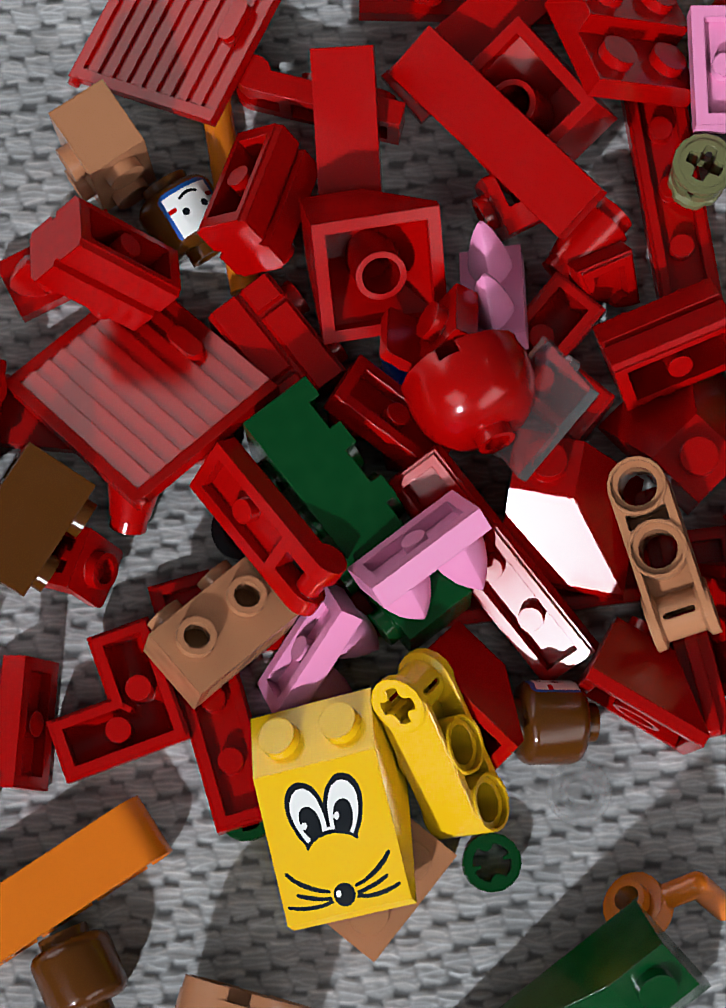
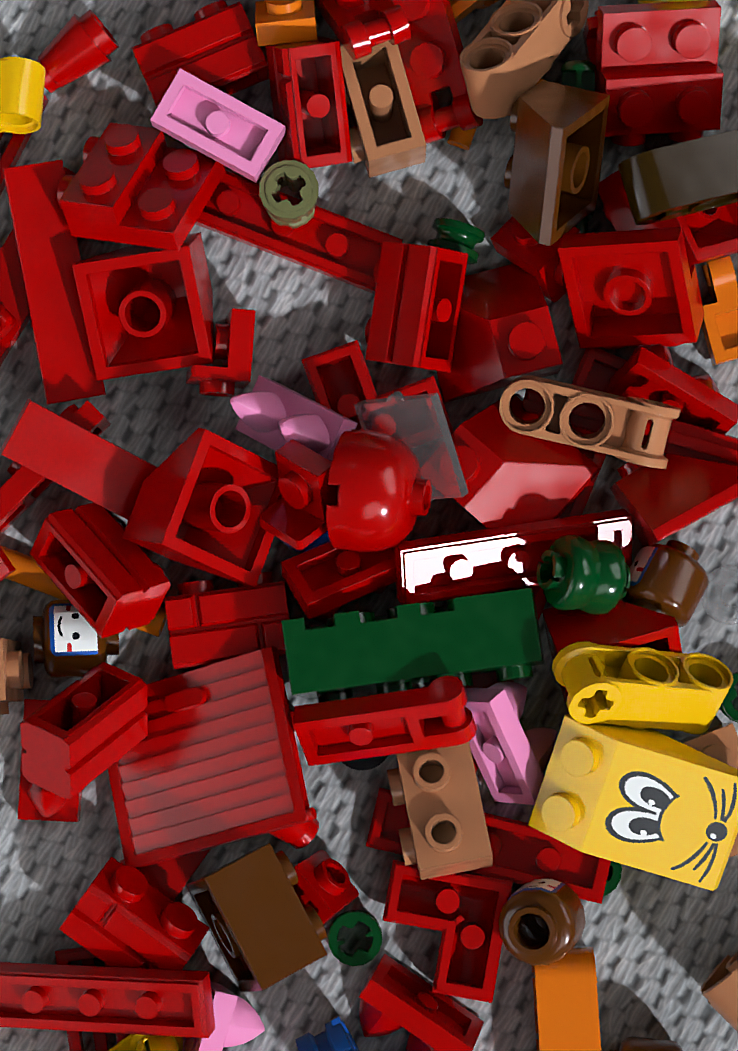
camera: 55 degrees left, 5 degrees up
(71, 613) = (361, 955): none -> dark green bush
(167, 784) = (541, 922): none -> reddish brown head
(440, 538) = (478, 594): bright pink tile -> none
(497, 133) = (160, 341): red tile -> none
(513, 633) = (583, 574): none -> dark green piece
(599, 229) = (287, 318): red cone -> none
(607, 275) = (328, 320): red tile -> none

